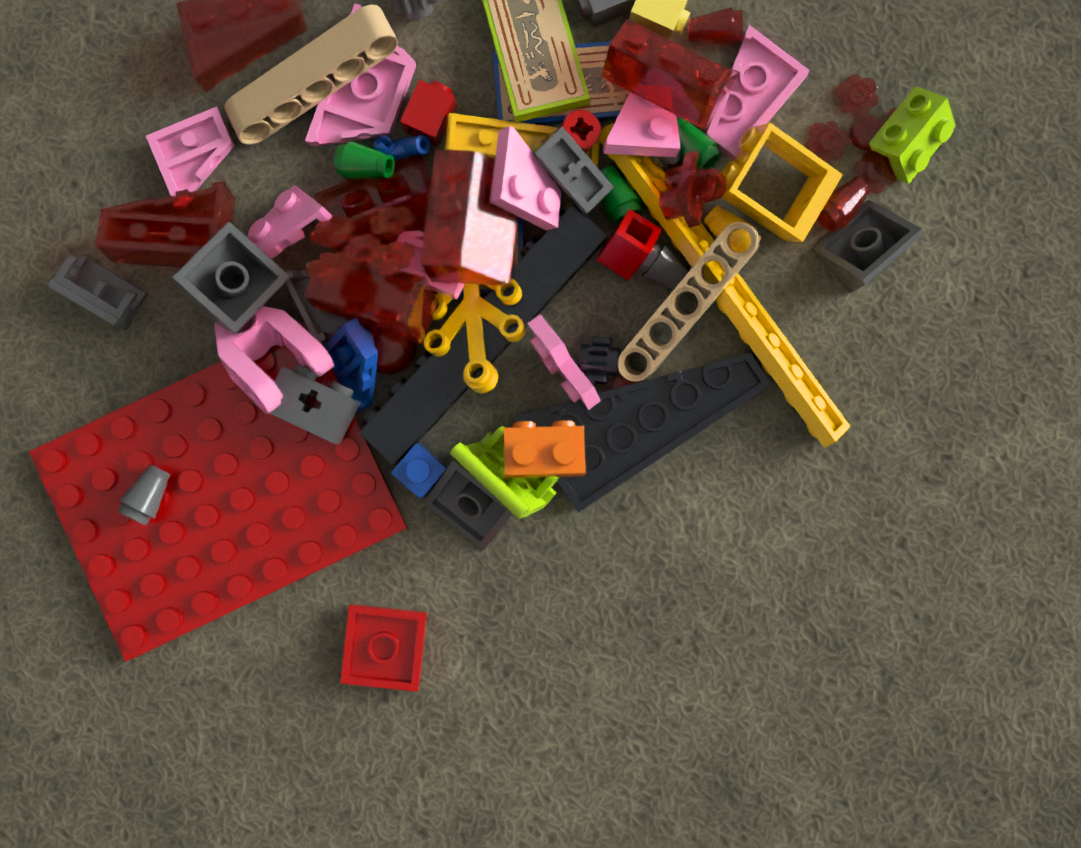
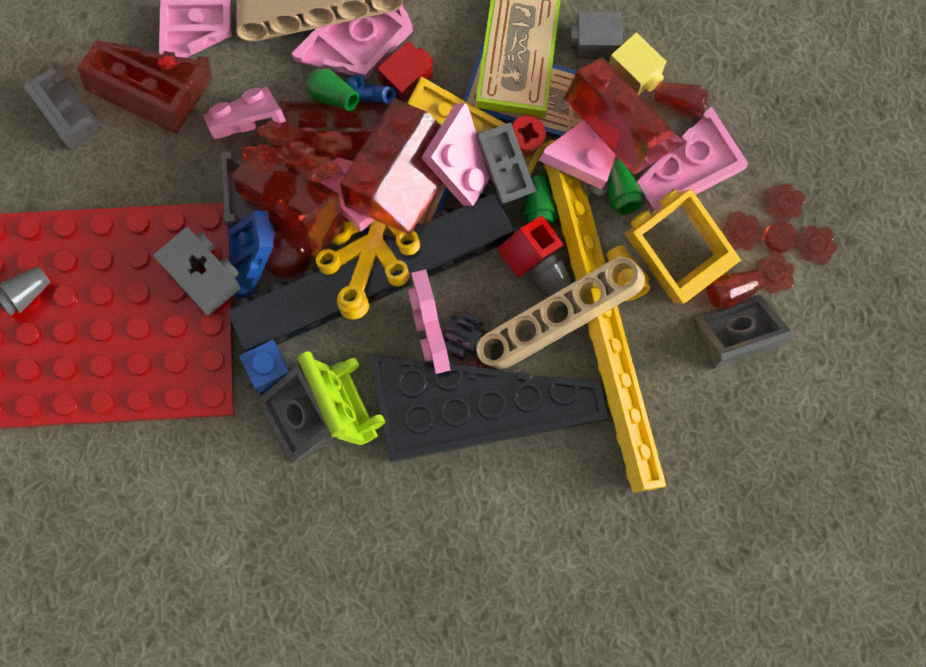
camera: 25 degrees right, 10 degrees down
(230, 279) = (176, 137): dark grey slope -> none
(254, 340) = (171, 191): bright pink piece -> none
(383, 647) = (166, 511): red plate -> none
(544, 450) = (380, 389): orange bracket -> none
(690, 190) = (600, 220): clear red hips -> none
(914, 132) = (821, 252): lime bracket -> none

